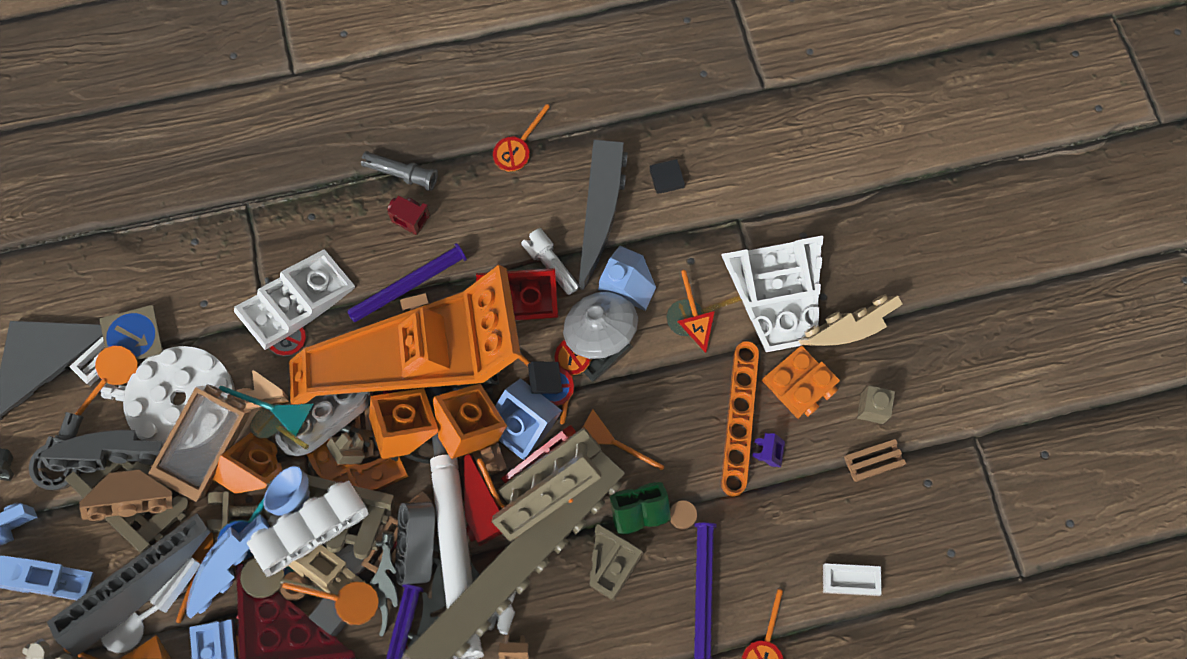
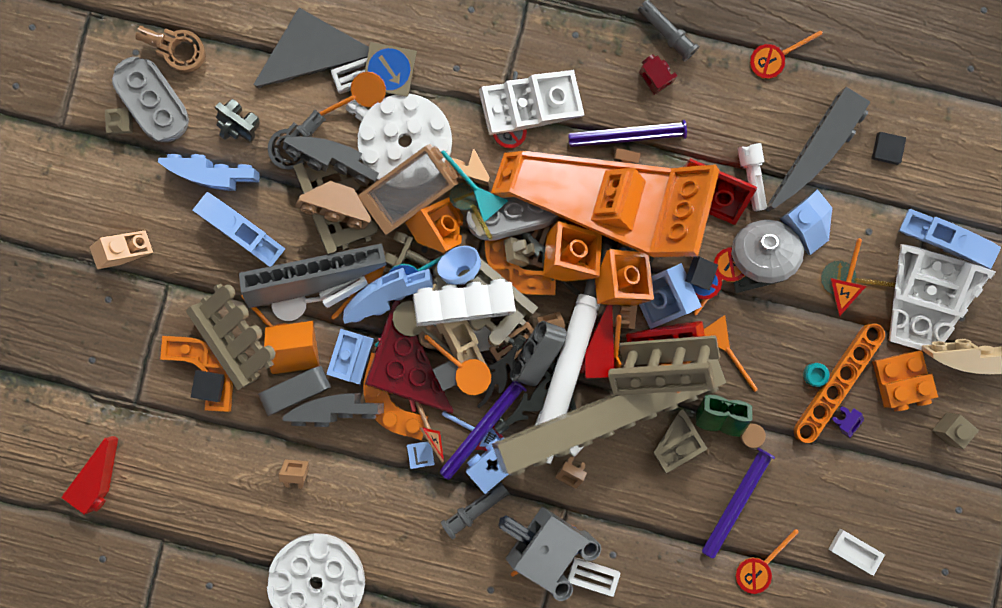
camera: 30 degrees right, 15 degrees up
(713, 421) = (816, 374): none -> teal tile
(767, 226) = (950, 238): none -> light blue slope
(896, 453) = (946, 474): medium nougat tile -> none

